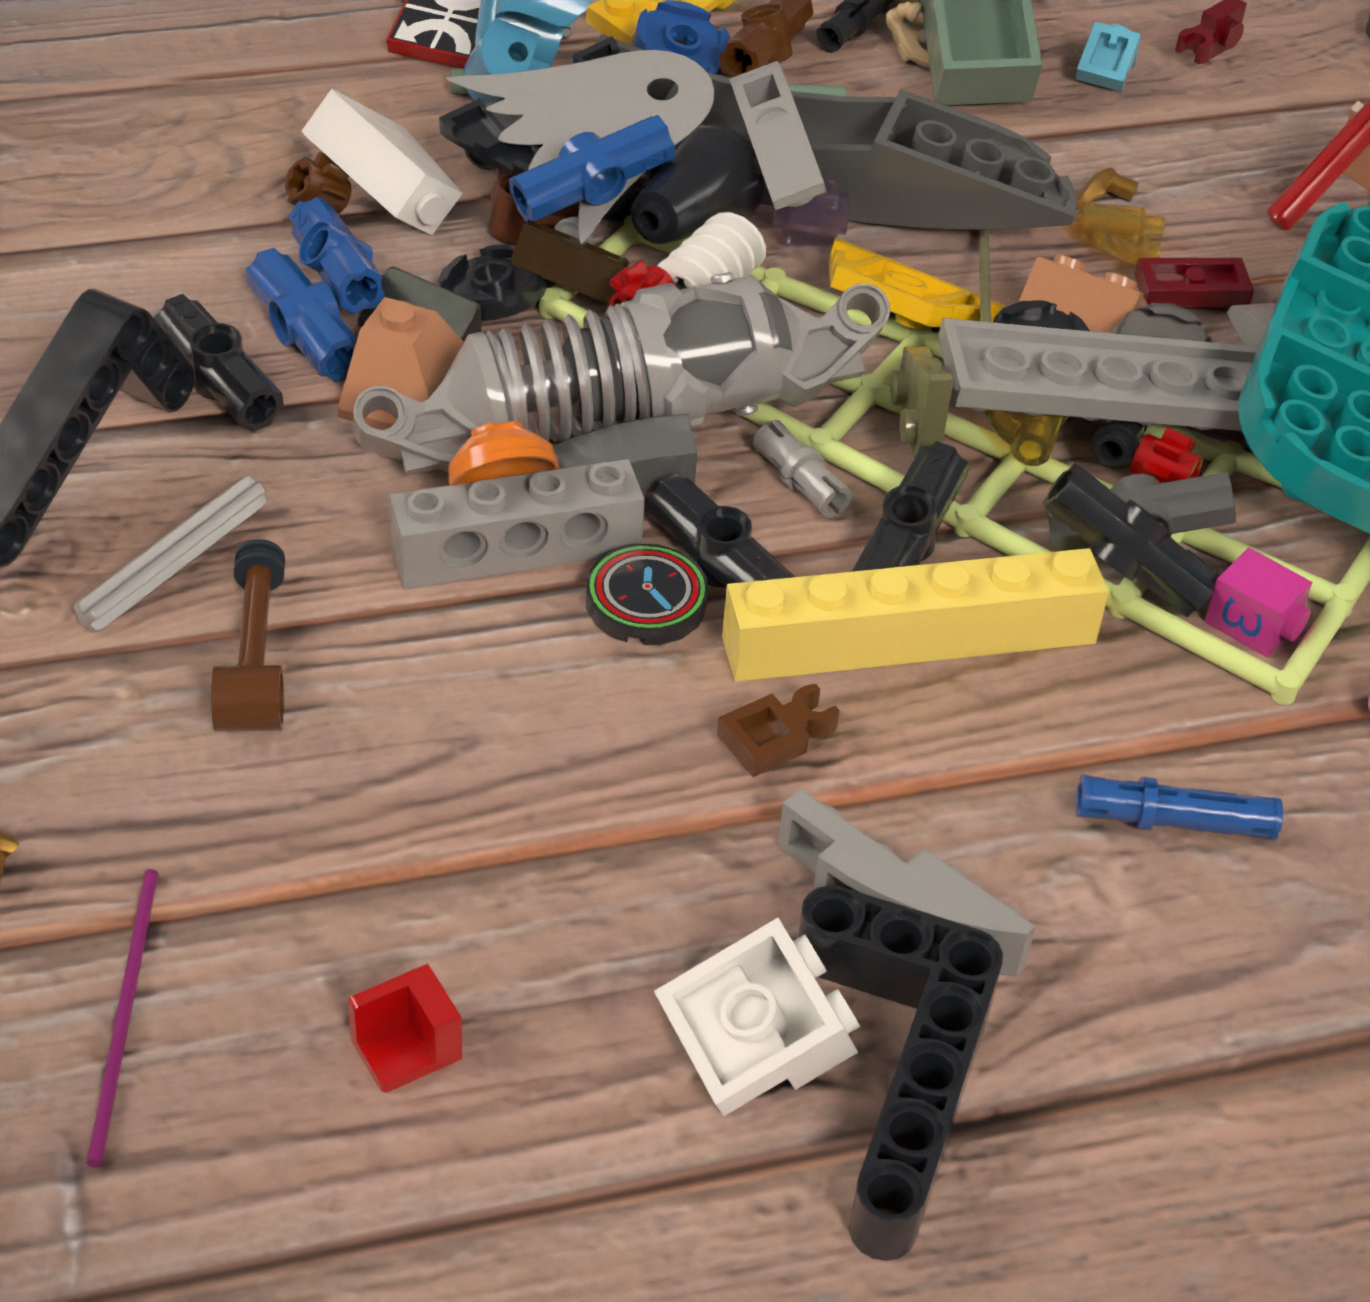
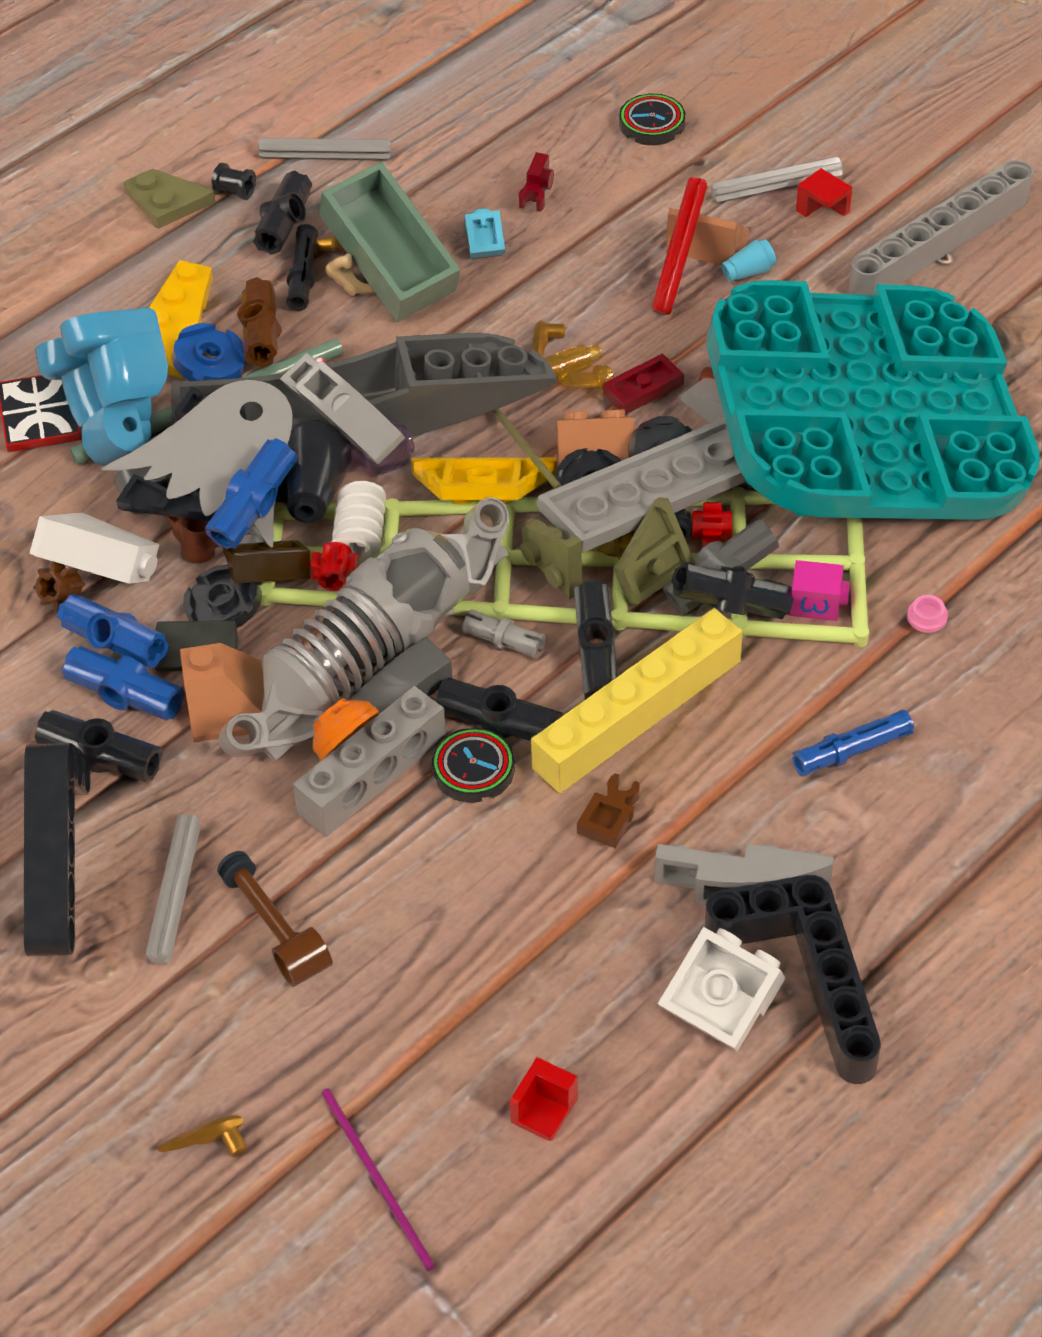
camera: 25 degrees left, 5 degrees up
(1037, 454) = (652, 553): none -> olive wing

